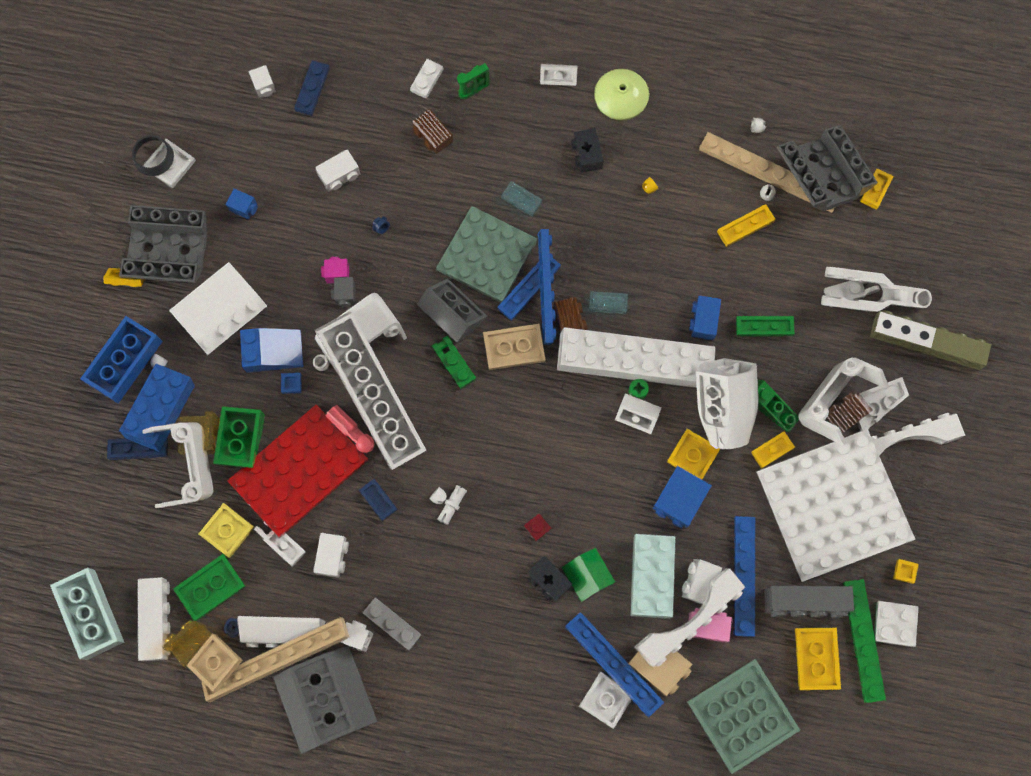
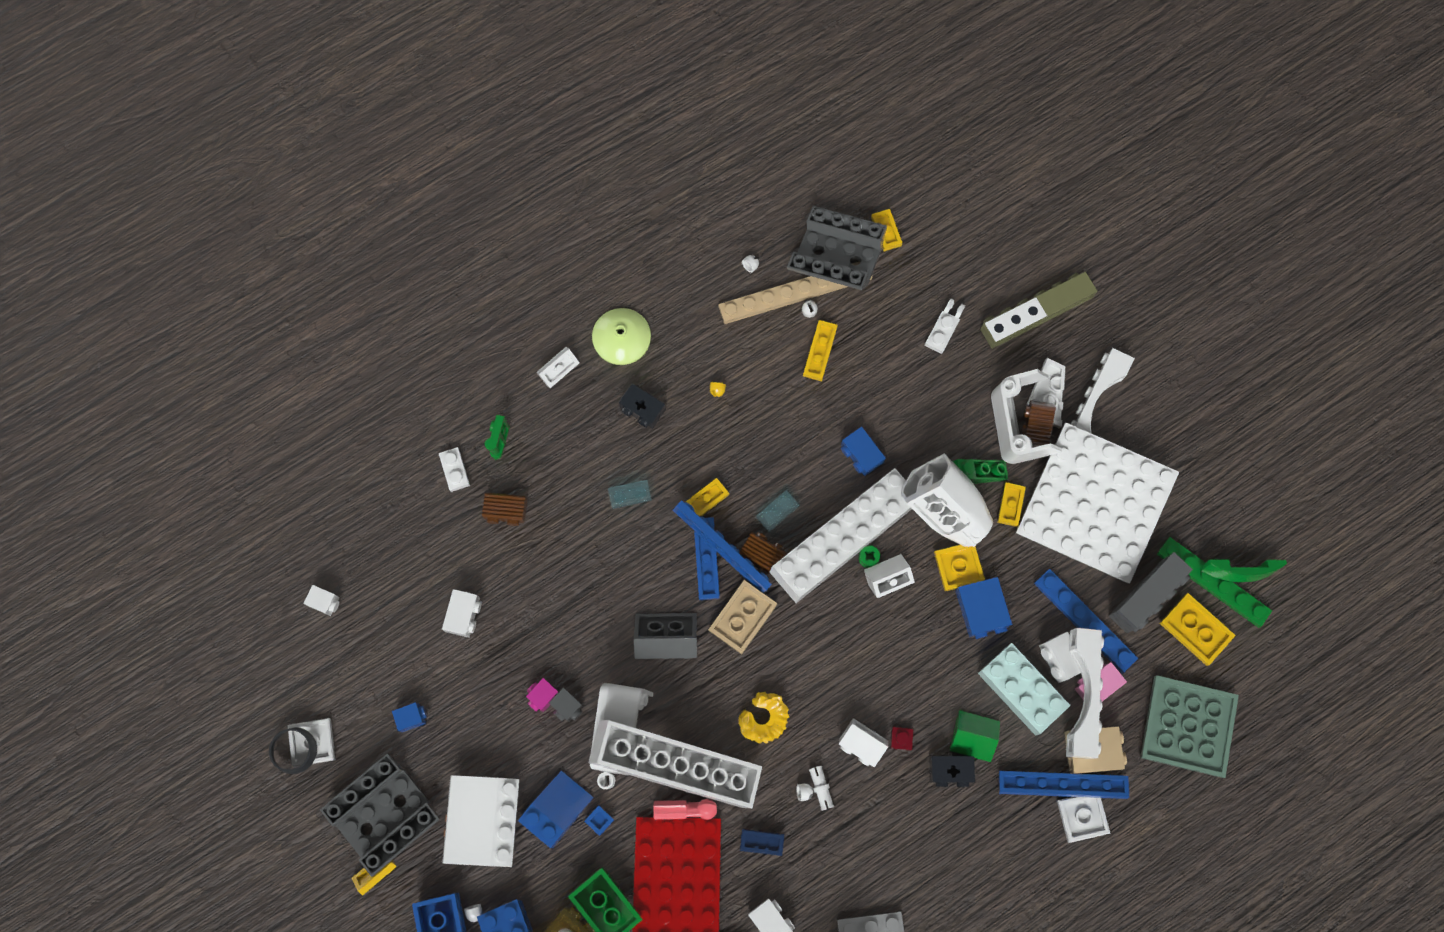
camera: 45 degrees left, 0 degrees up
(312, 88) = (367, 566): dark blue plate -> none
(381, 225) = (540, 623): dark blue plate -> none
(454, 363) = (709, 675): green plate -> none
(462, 435) = (776, 724): none -> yellow piece
(486, 254) = (646, 565): sand green plate -> none
(508, 502) = (863, 743): none -> white brick
(569, 249) = (708, 497): none -> yellow plate
(765, 326) = (911, 415): green plate -> none
(876, 635) = (1222, 570): none -> green slope
(891, 295) = (978, 301): white piece -> none
(896, 623) = (1223, 544): white plate -> none
(905, 571) = (1192, 501): yellow plate -> none

